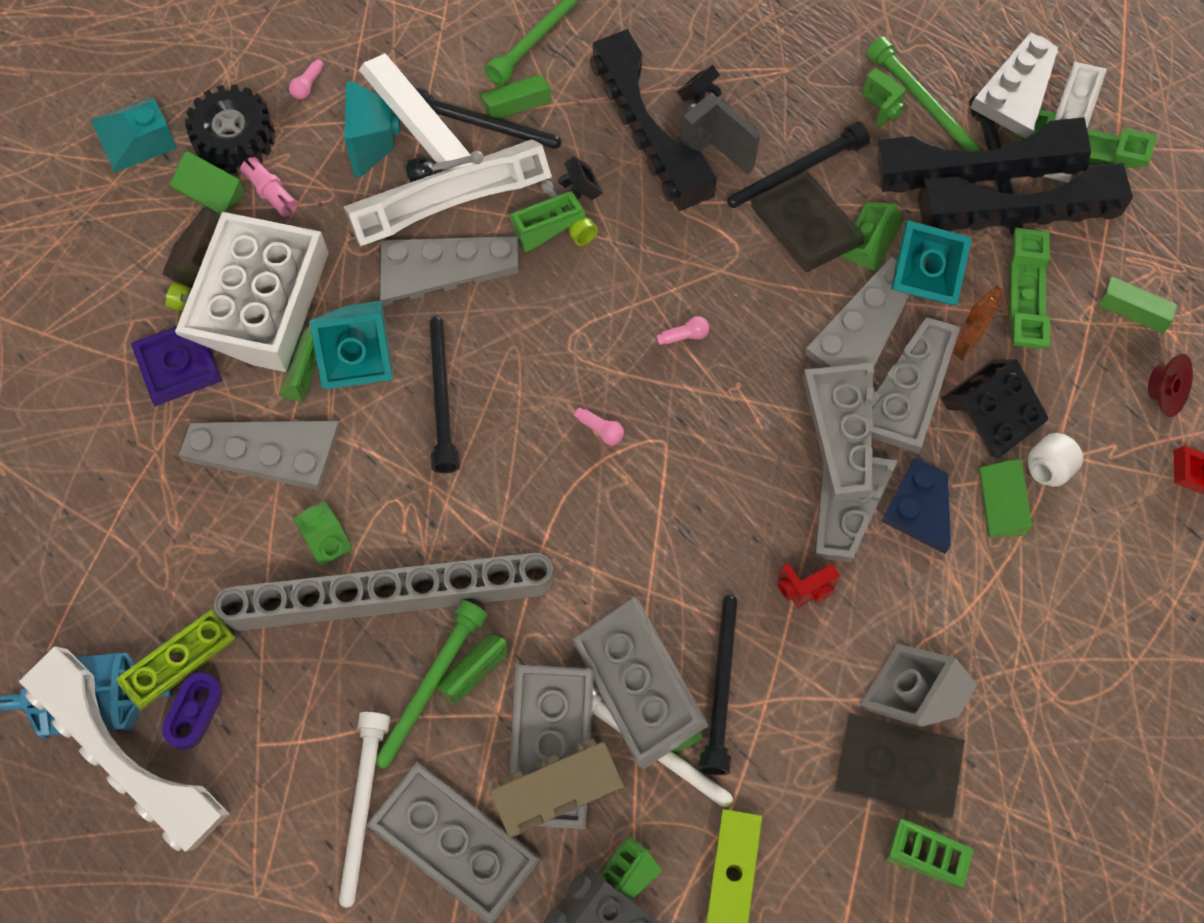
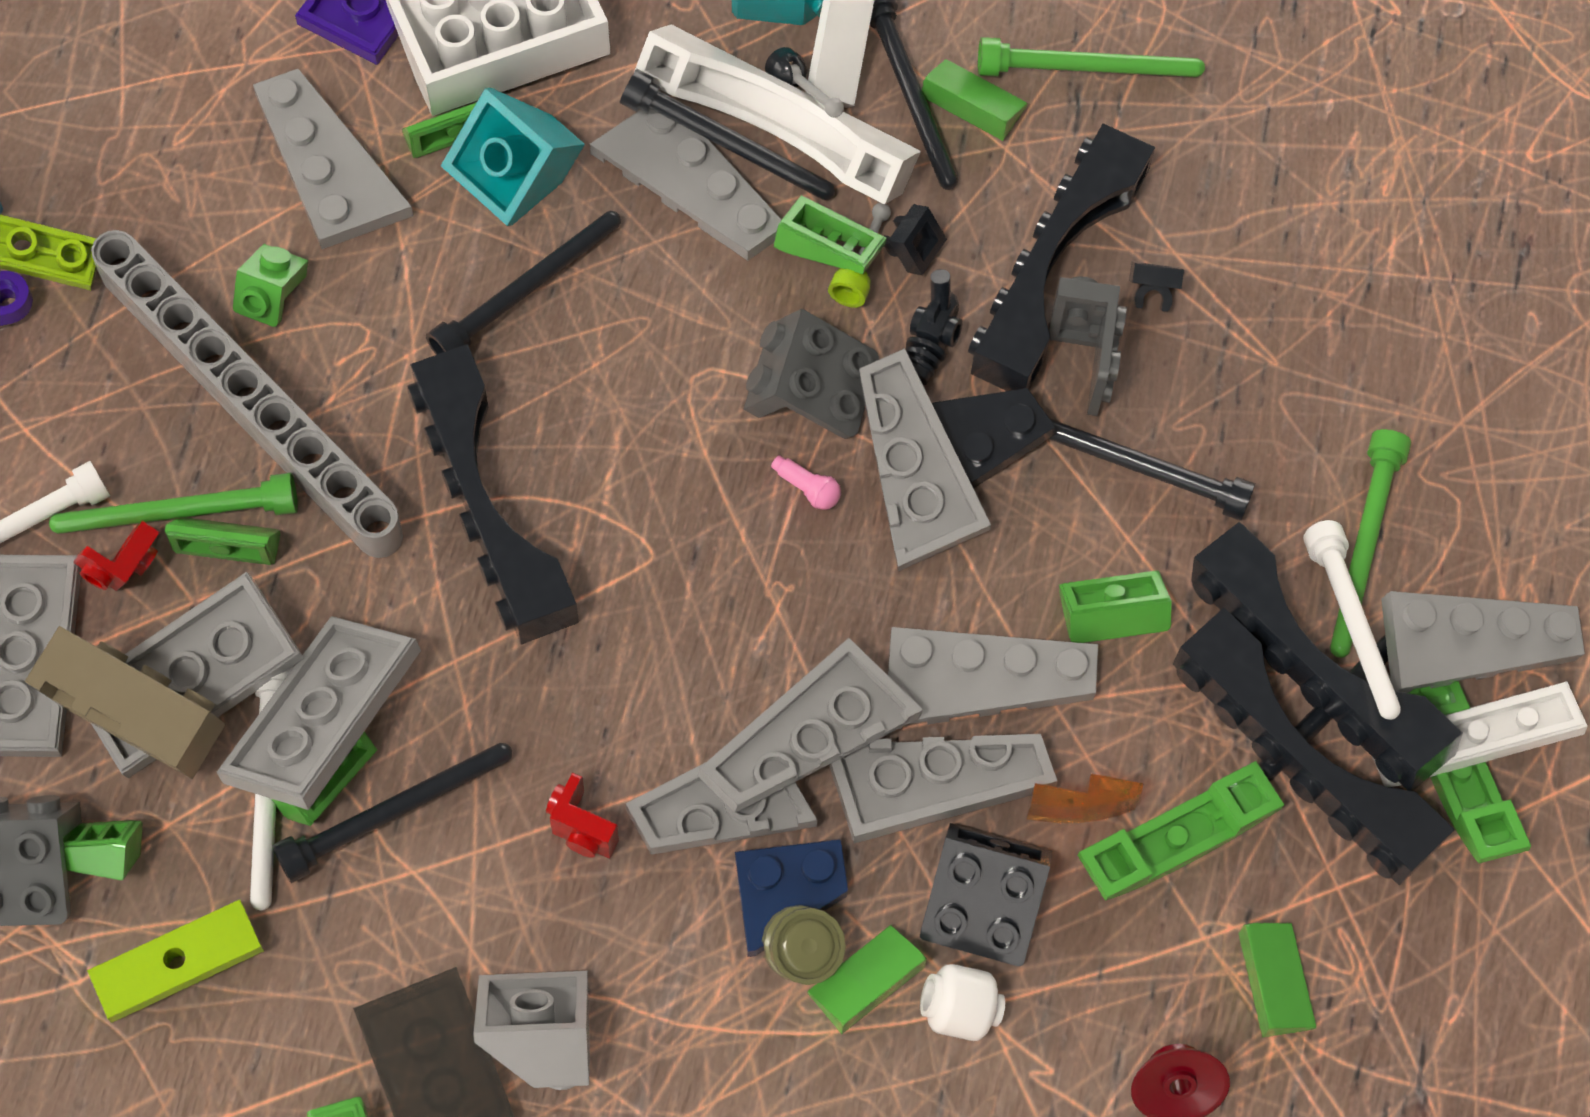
camera: 50 degrees right, 0 degrees up
(379, 247) = (646, 95): none -> black piece
(445, 733) = (132, 557): none -> red bracket
(609, 431) = (614, 486): bright pink piece -> none
(618, 284) = (810, 371): none -> dark grey bracket
(638, 515) = (529, 580): none -> black arch
(643, 206) = (934, 327): none -> black piece
(723, 270) = (919, 472): none -> light grey wing
(724, 223) = (993, 430): none -> black wing
(807, 221) = (1066, 519): clear smoke tile -> none
(885, 94) = (1330, 488): bright green bracket -> none
(916, 114) = (1328, 547): none -> white piece
(931, 263) = (1106, 686): teal slope -> none
(968, 516) = (803, 944): none -> olive wheel

